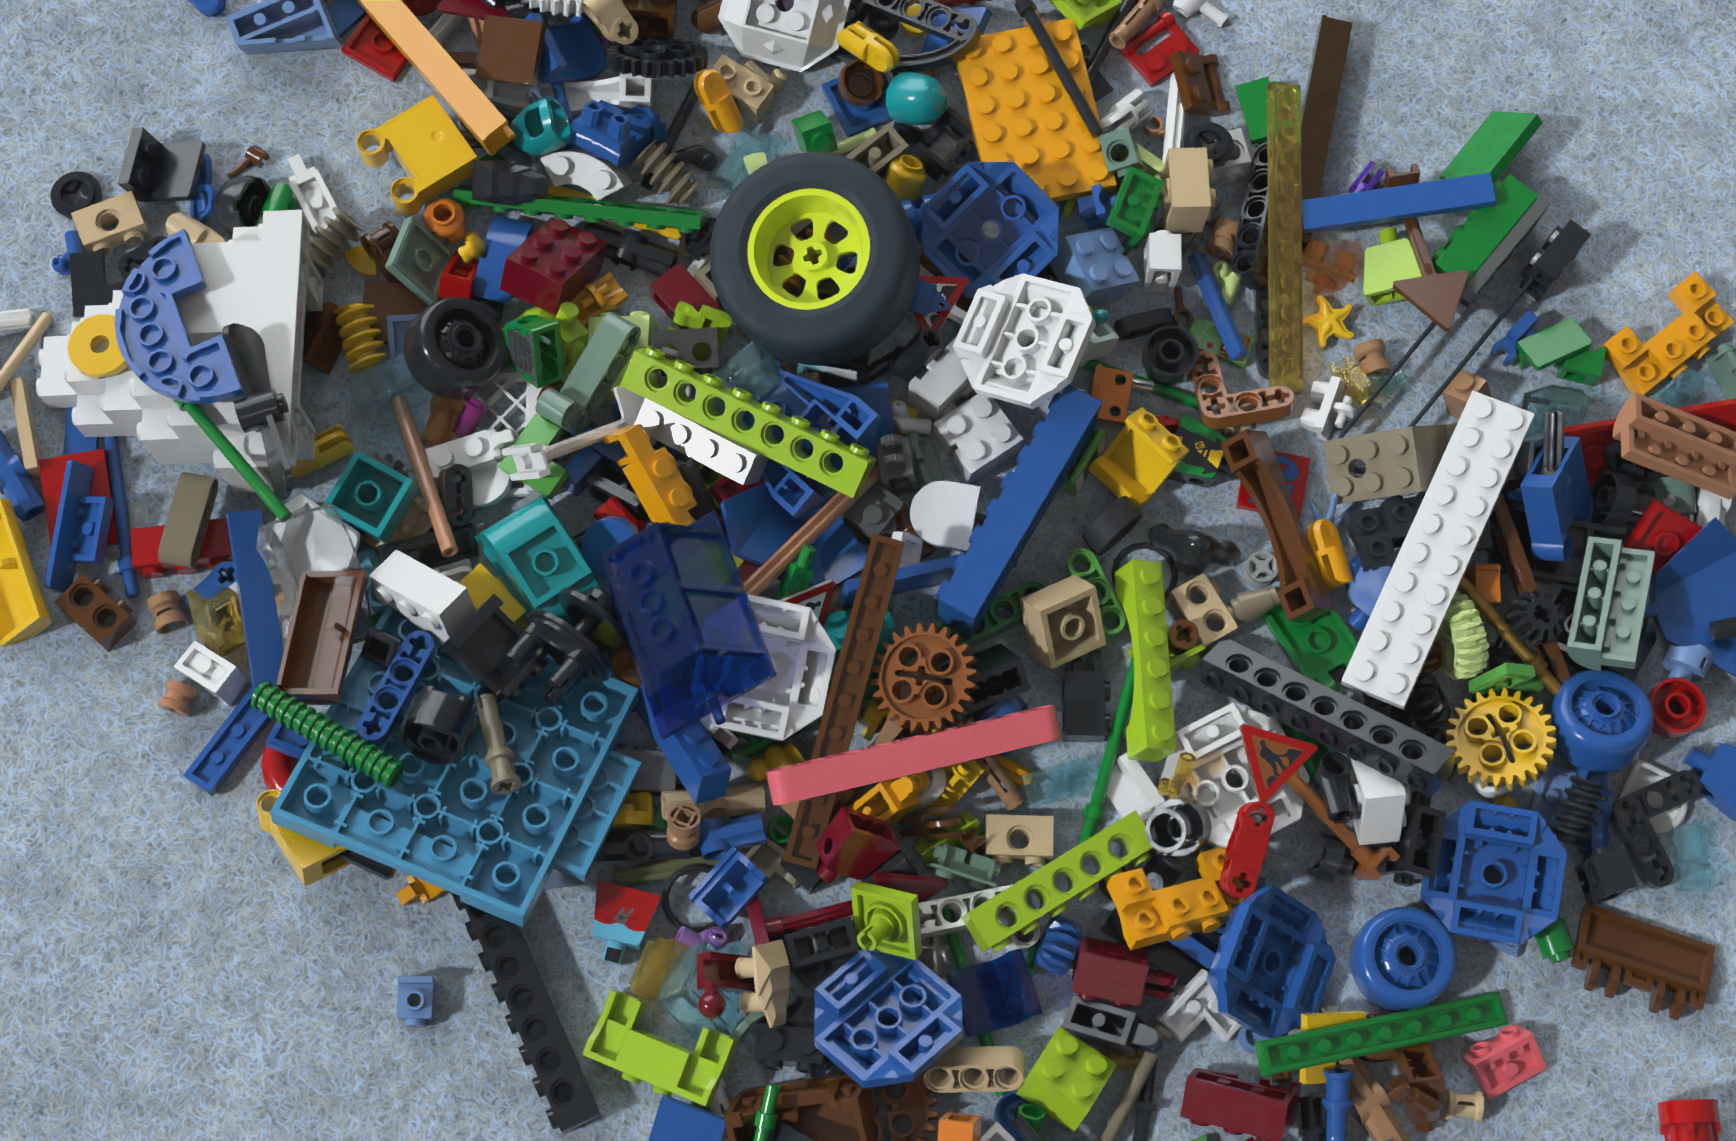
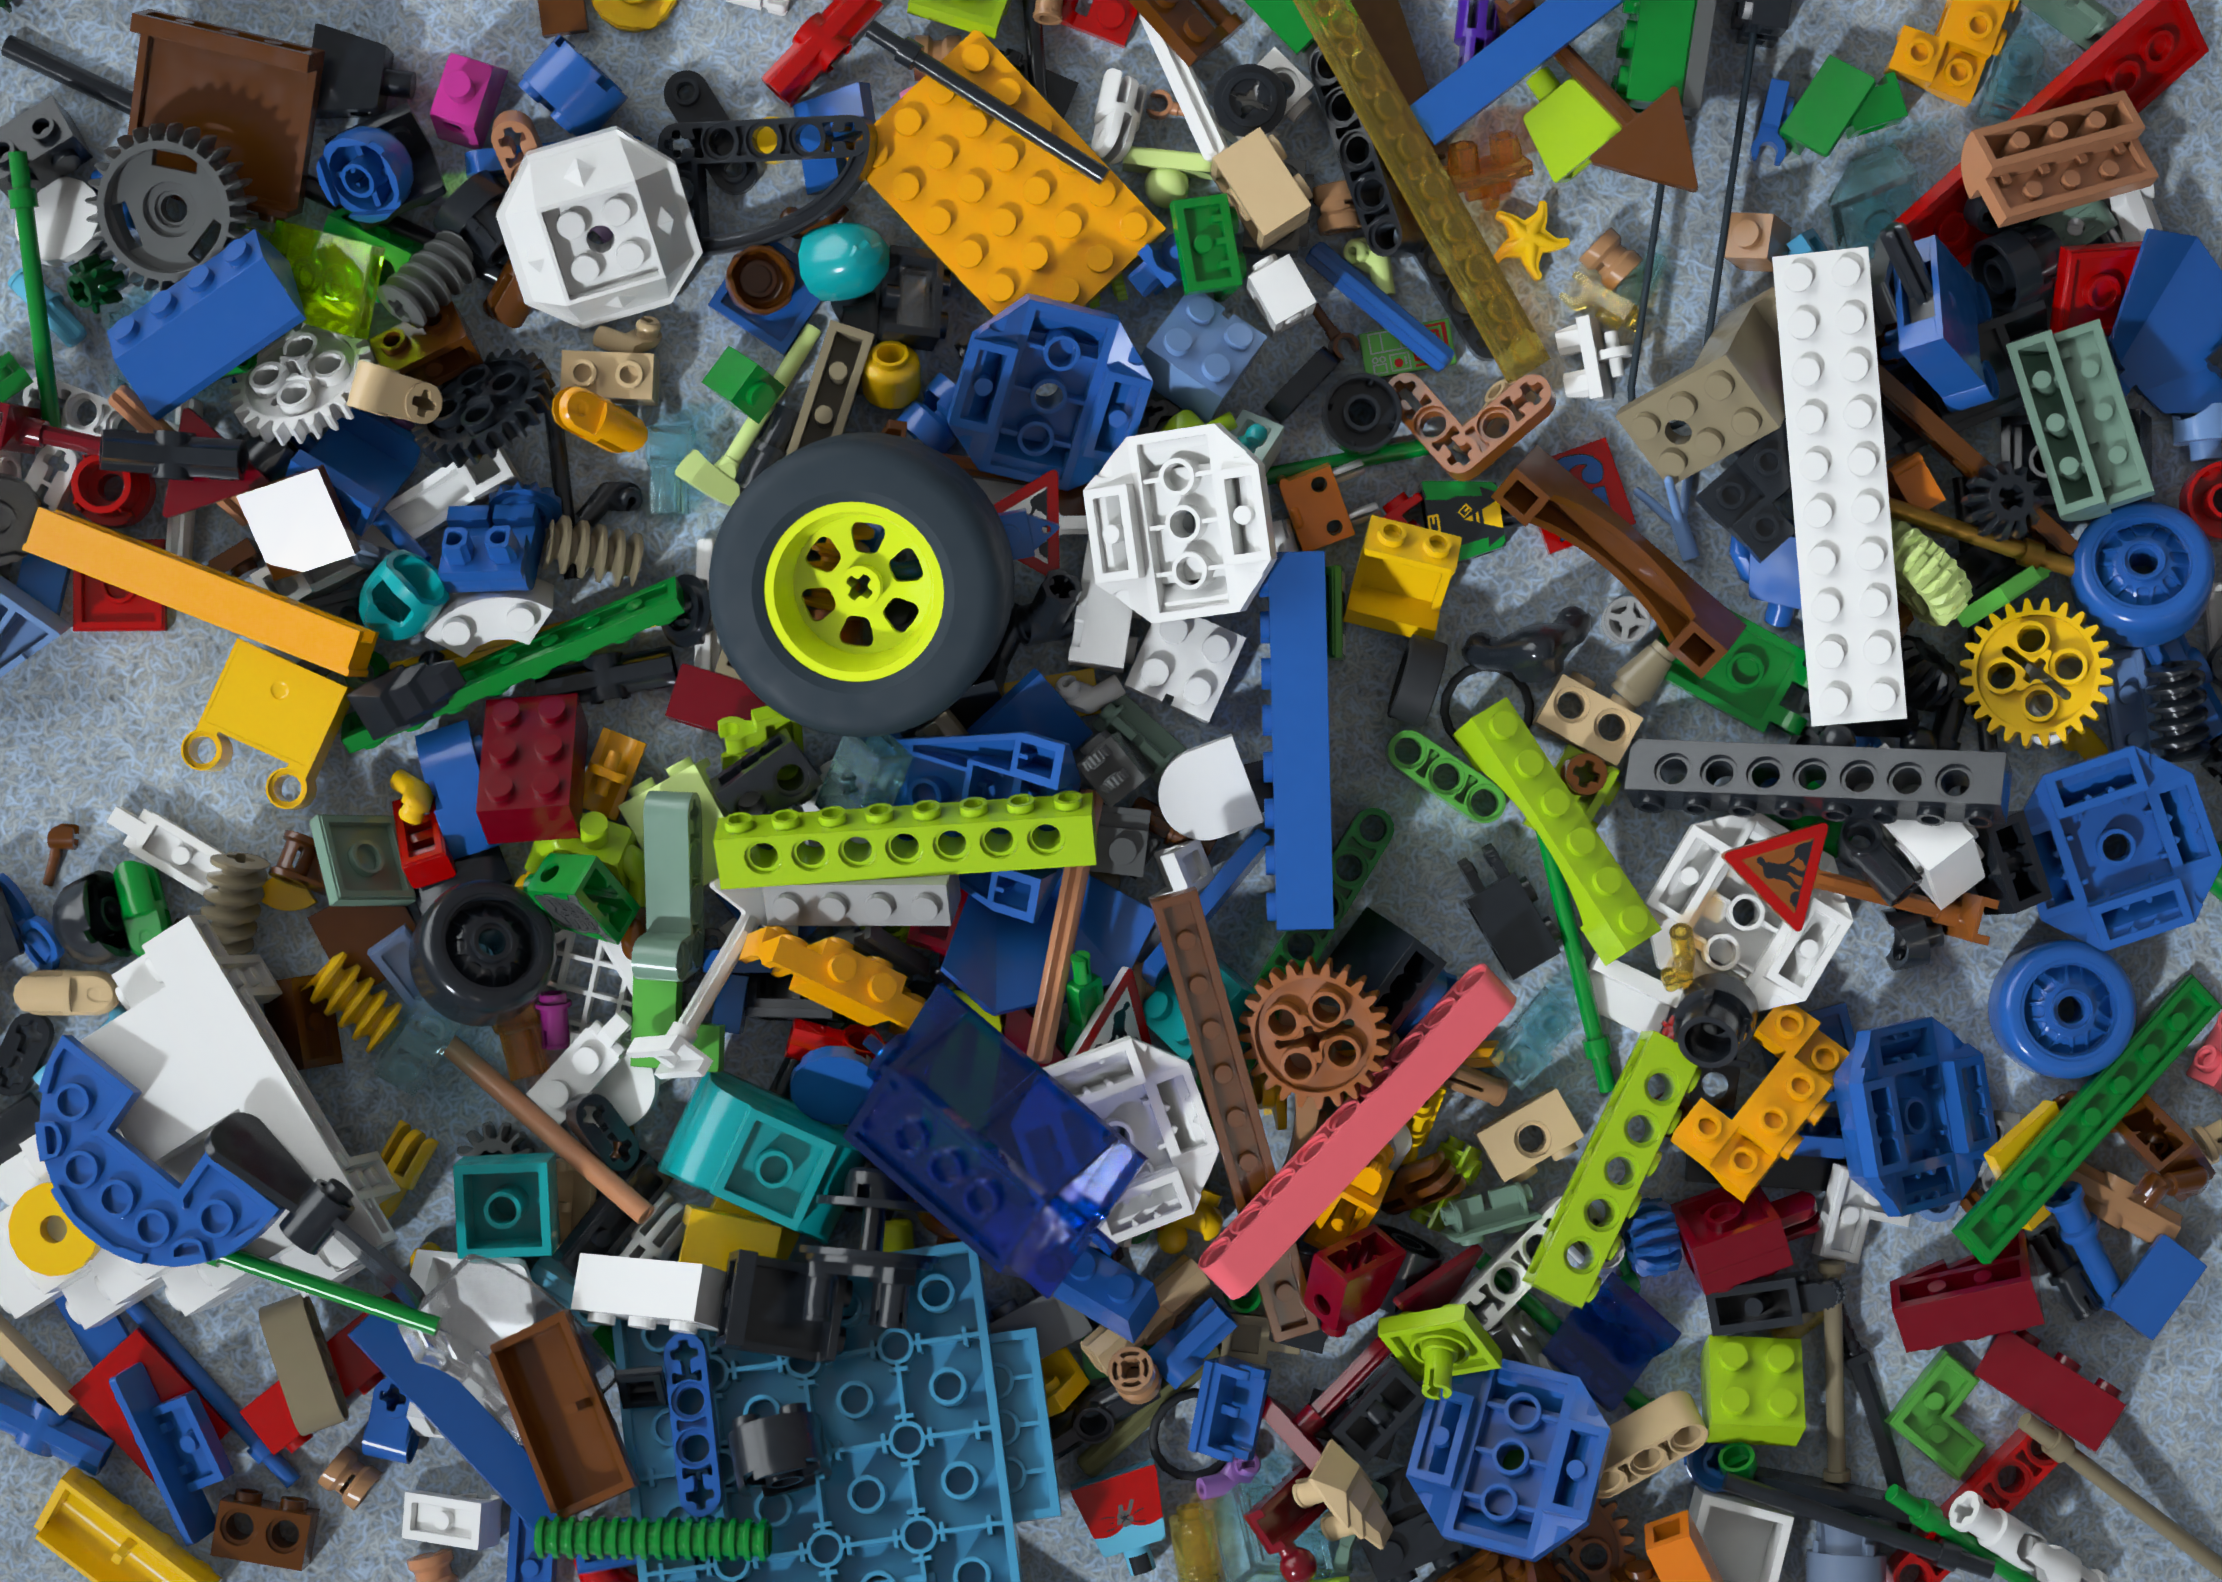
camera: 25 degrees left, 15 degrees up
(218, 621) = (422, 1459): clear yellow panel -> none
(445, 220) = (340, 784): orange head -> none
(499, 756) = (872, 1438): dark tan pin -> none
(869, 46) = (743, 230): yellow arm -> none
(972, 841) = (1479, 1176): reddish brown hand -> none
(1062, 621) = (1430, 844): tan brick -> none
(1115, 141) = (1147, 160): sand green brick -> none
(1246, 849) = (1814, 1004): red piece -> none
(1329, 554) = (1700, 556): light orange arm -> none

